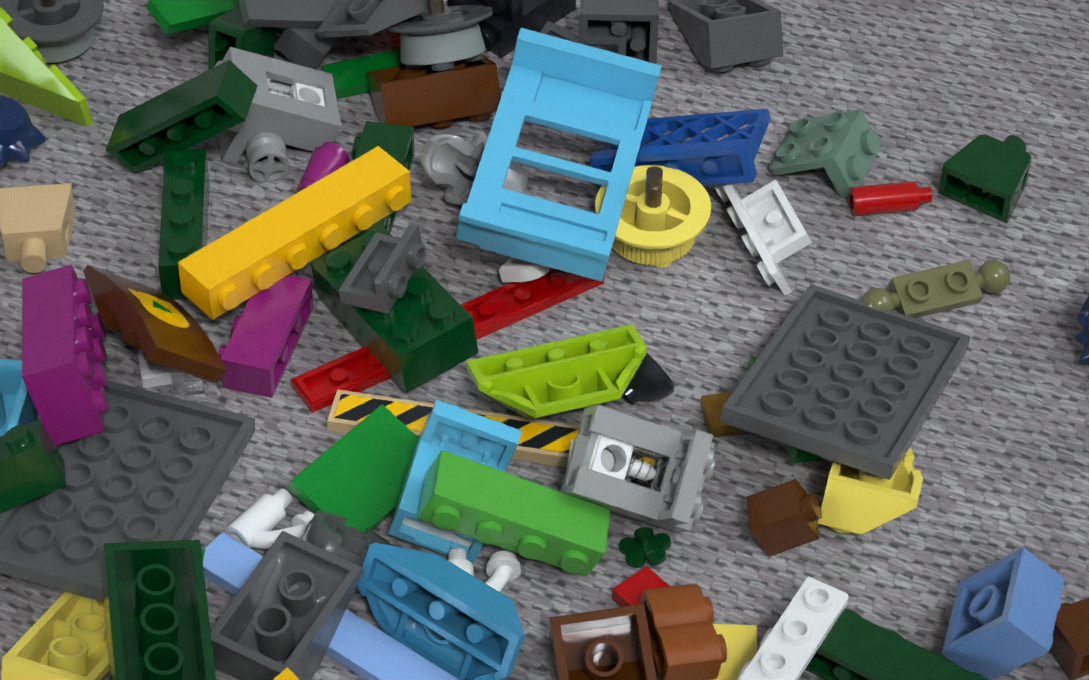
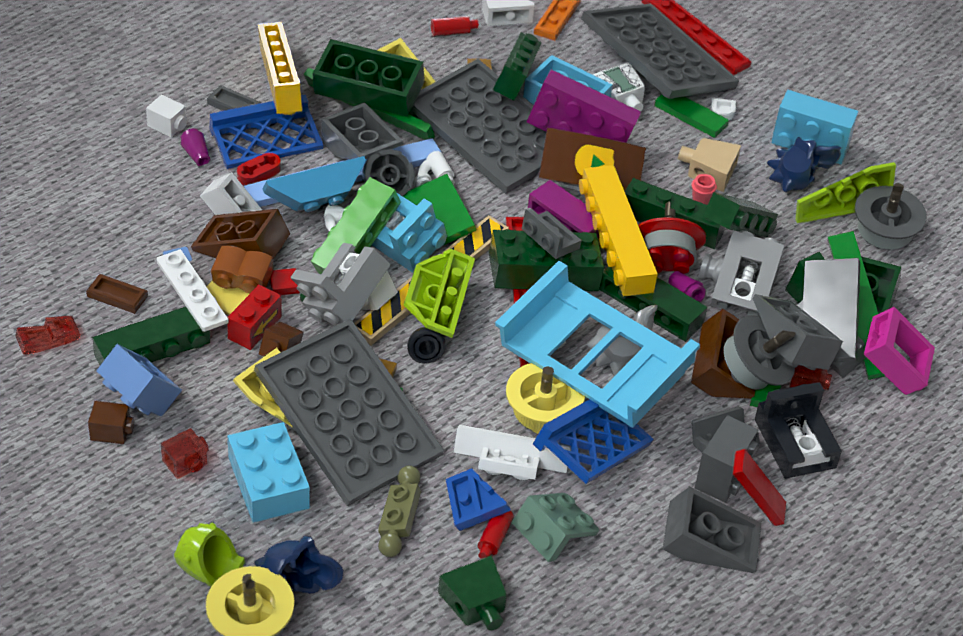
camera: 115 degrees right, 0 degrees up
(121, 201) = (703, 188): none -> coral cone
(270, 172) = (672, 241): none -> red piece
(755, 574) = (253, 315): none -> red brick
(864, 224) = (473, 500): none -> blue wing
(1002, 428) = (268, 472): none -> medium azure brick
(1051, 529) = (184, 453): none -> clear red brick

